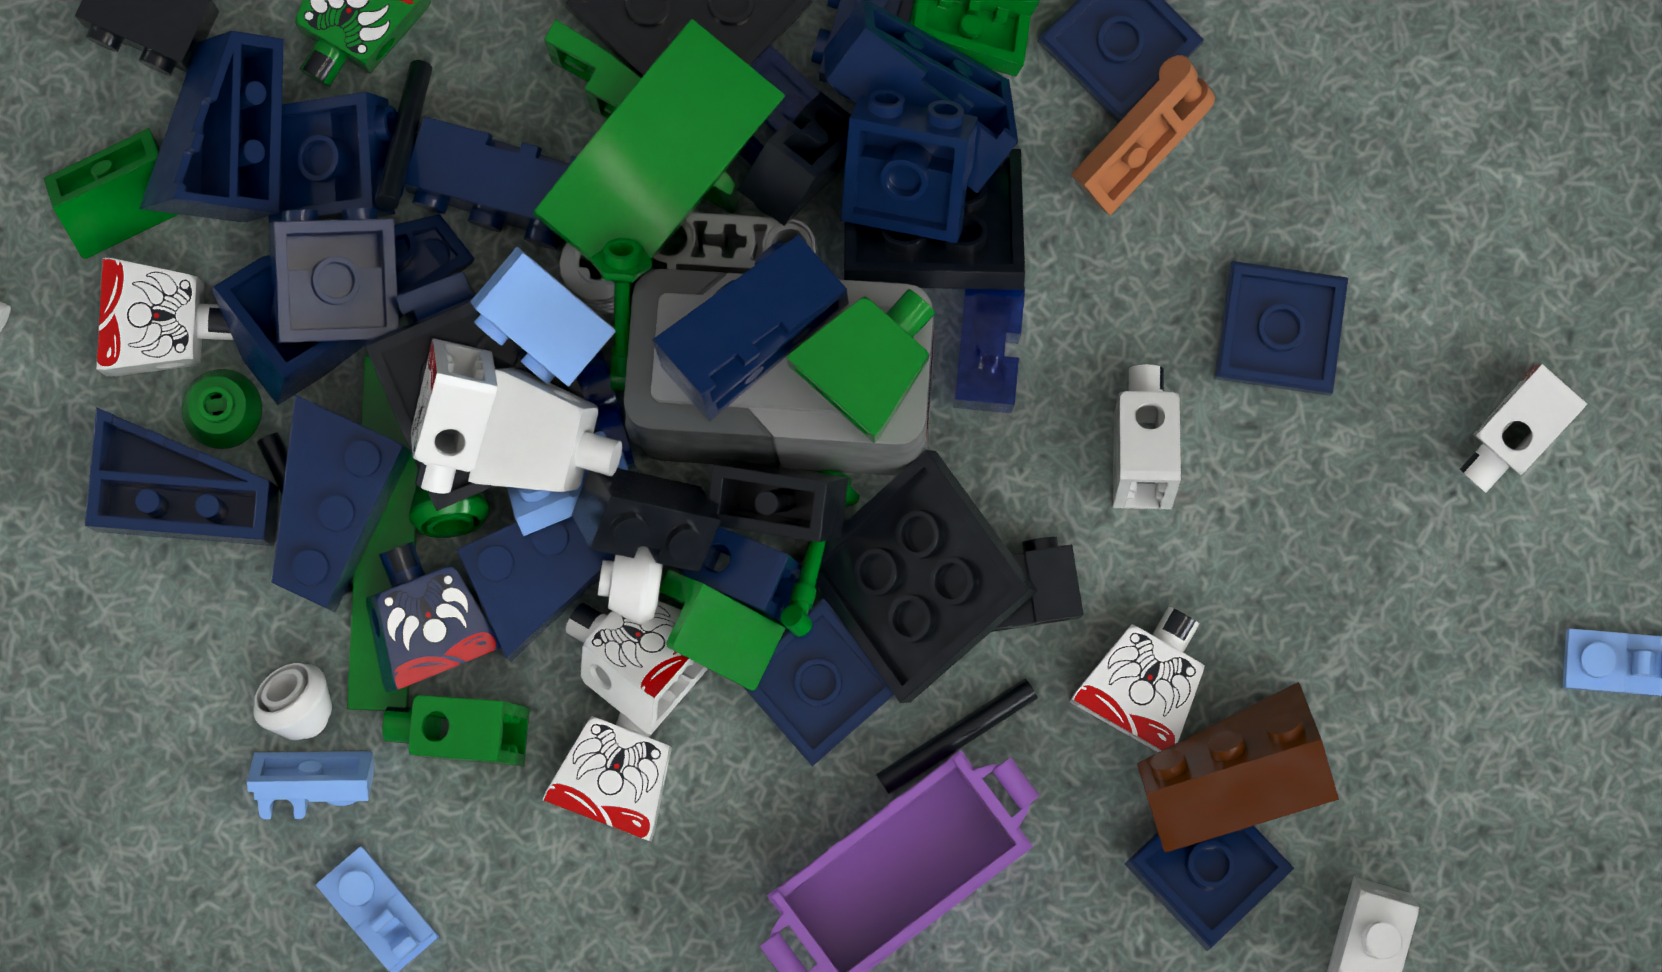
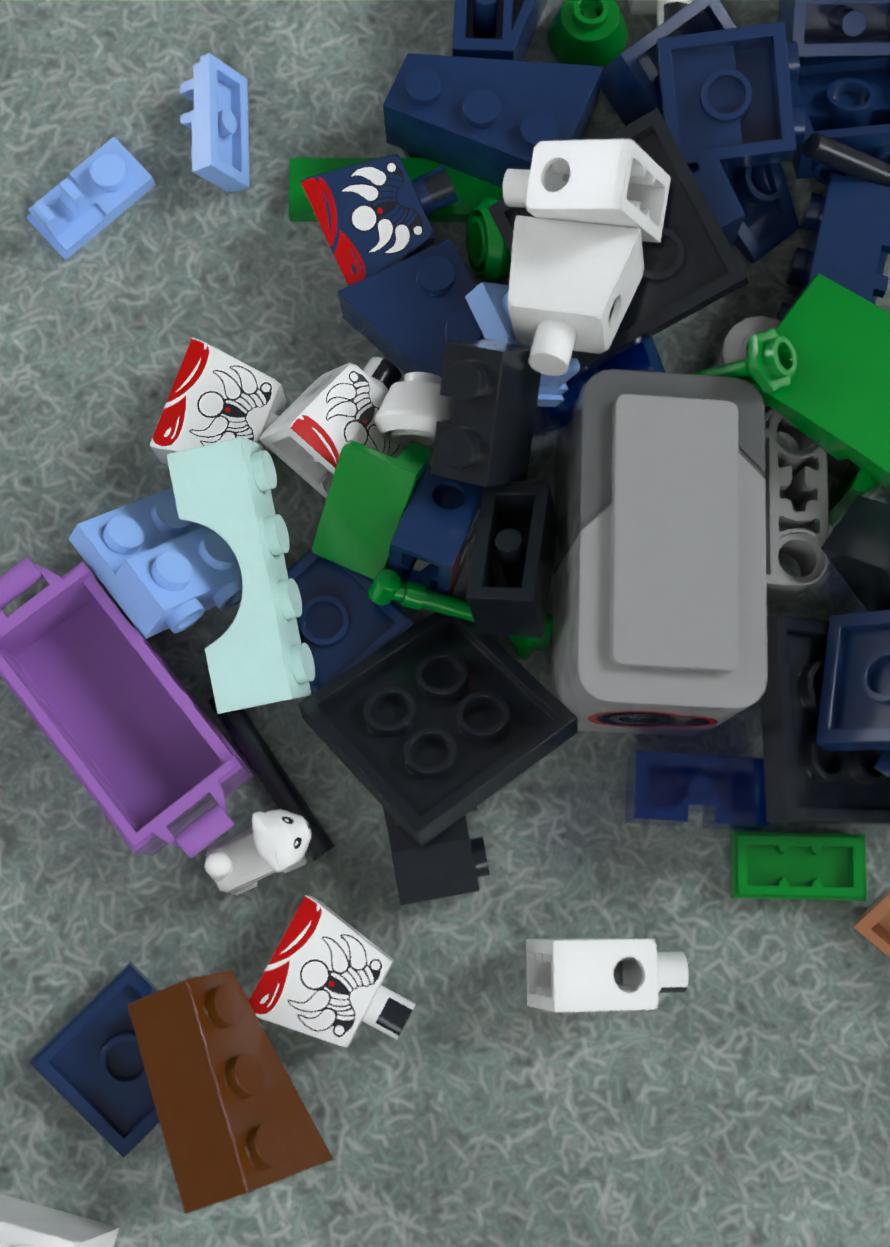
camera: 90 degrees right, 5 degrees down
(293, 702) = (293, 104): white cone -> none
(477, 729) = (264, 245): green torso -> none
(540, 317) = (700, 279): light blue brick -> none
(706, 761) = (262, 650): none -> light aqua arch
(750, 325) = (705, 482): dark blue wedge -> none
(761, 826) = (158, 565): none -> light blue plate
(866, 360) = (675, 624): green torso -> none
(1026, 731) = (271, 846): none -> white animal
(1055, 261) = (797, 866): none -> green plate
(1281, 328) = (739, 1130): dark blue plate -> none

